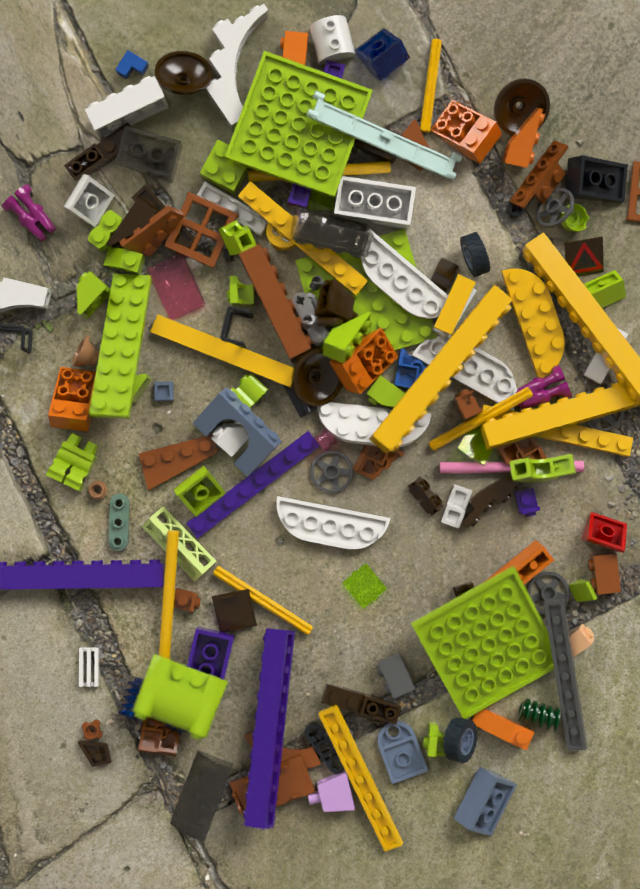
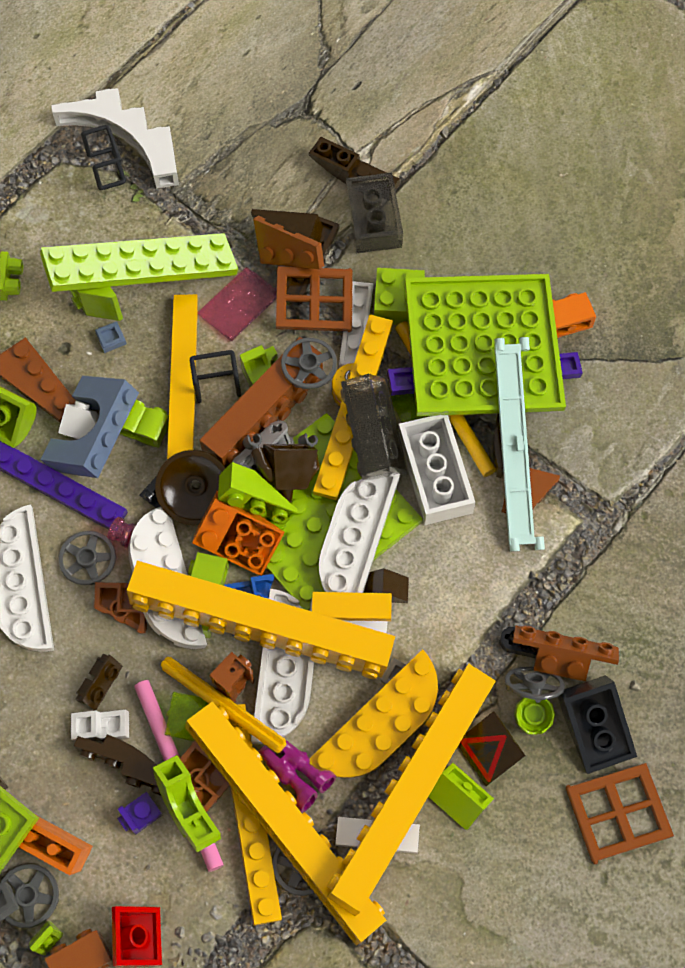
camera: 65 degrees right, 20 degrees down
(36, 215) = (249, 137): magenta piece -> none
(72, 399) = (53, 234): orange slope -> none
(85, 353) = (119, 233): medium nougat piece -> none
(89, 200) = (293, 175): white brick -> none
(90, 294) = (186, 213): lime slope -> none
(103, 232) = (264, 200): lime brick -> none
(124, 260) = (244, 241): lime slope -> none
(129, 106) = (420, 173): white brick -> none
(131, 62) = (467, 160): blue piece -> none
(183, 73) = (482, 210): dark brown dish -> none
(224, 61) = (520, 251): white arch -> none
(237, 238) = (326, 330): lime brick -> none
(265, 256) = (309, 363): none -> dark grey wheel
(332, 39) = (606, 350): white brick -> none
(382, 54) = (616, 409): clear blue slope -> none
(430, 85) = (609, 478): yellow axle -> none
(467, 131) = (576, 542): orange slope -> none
(475, 254) = (427, 607): black wheel -> none
(520, 145) = (593, 604): orange slope -> none
(529, 94) = (620, 595): dark brown dish -> none

